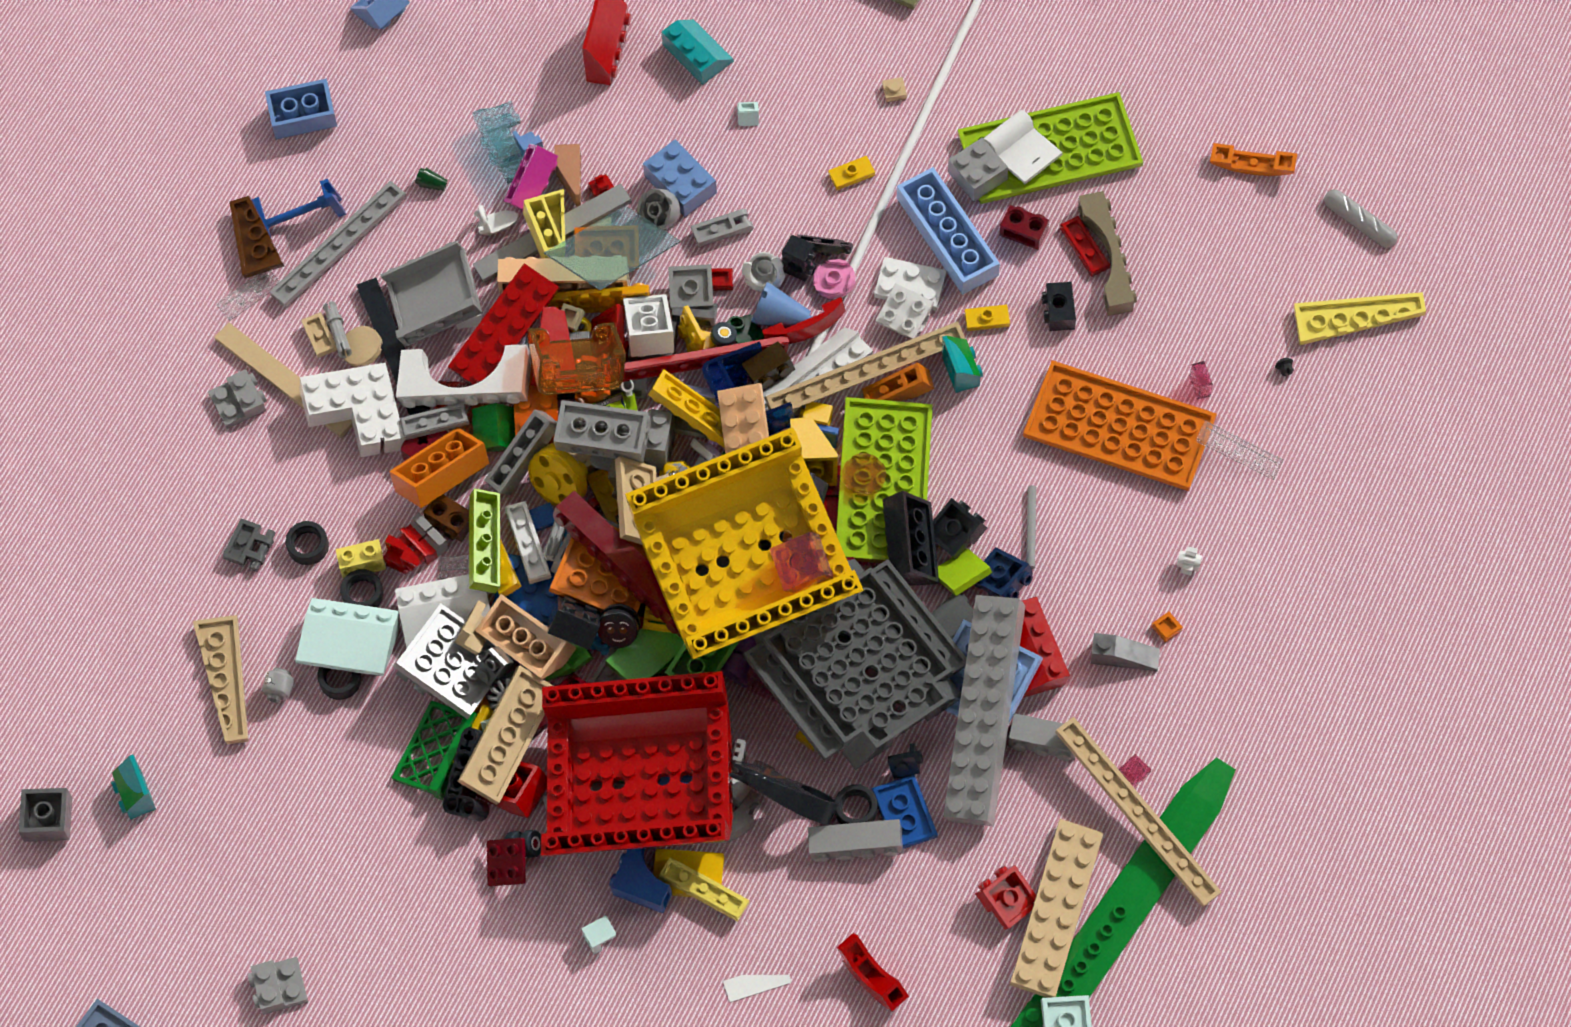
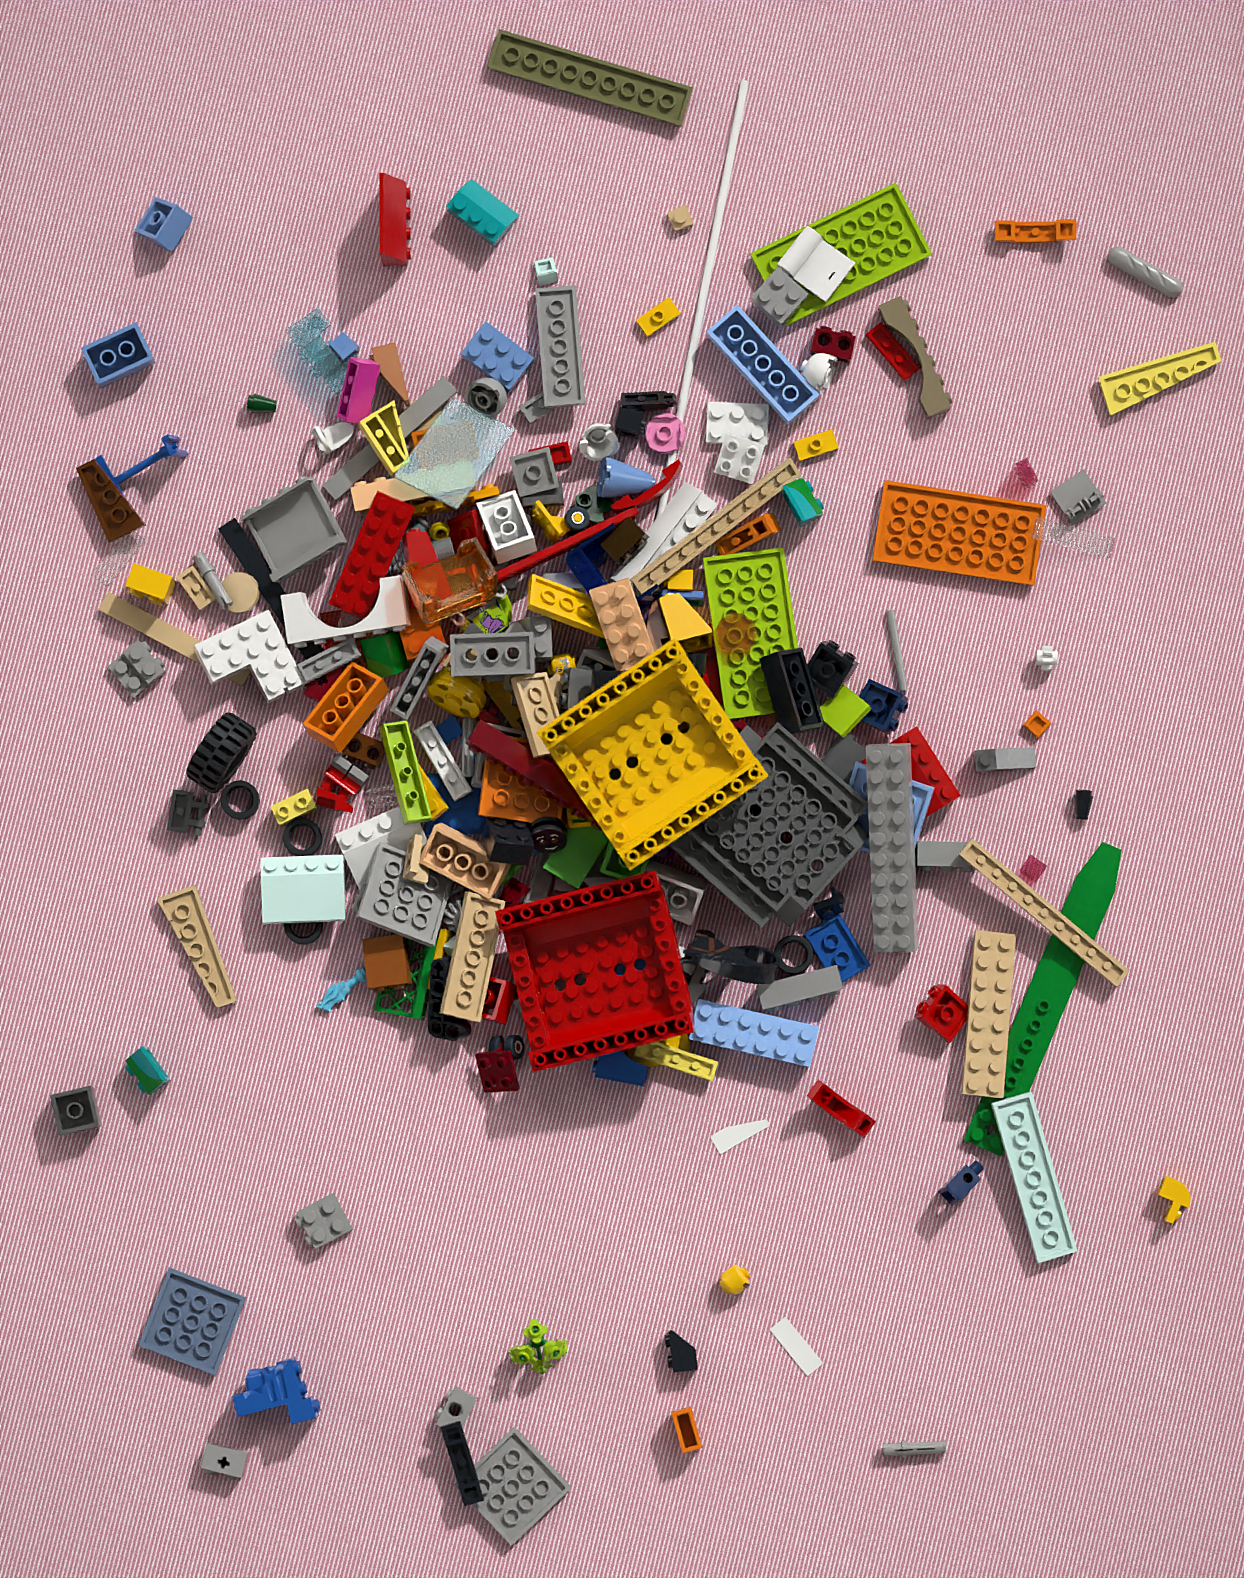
camera: 15 degrees left, 20 degrees up
(272, 318) = (150, 584): none -> yellow brick
(277, 685) = (250, 945): light grey head -> none
(297, 483) = (221, 752): none -> black tyre
(337, 244) = (189, 489): light grey plate -> none
(358, 751) = (338, 992): none -> medium azure piece
(417, 728) = (387, 963): none -> dark orange brick
(493, 666) = (444, 893): dark grey slope -> none
(573, 316) = (432, 527): tan plate -> none
(598, 933) = (594, 1119): light aqua panel -> none
(600, 185) = (424, 379): red tile -> none
(705, 449) = (590, 641): white tile -> none
(740, 753) = (682, 933): light grey tile -> none
(745, 179) = (560, 346): none -> light grey plate
(749, 718) = (680, 889): none -> white slope
(794, 878) = (754, 1033): none -> light blue brick
(801, 562) = (705, 756): clear pink brick -> none
(1006, 245) = (819, 371): none -> white cylinder
(1059, 318) = (881, 409): black brick -> none
(1201, 713) = (1082, 802): none -> black cone
(1252, 415) = (1078, 497): none -> light grey hinge
(1285, 366) = (1100, 442): black piece -> none

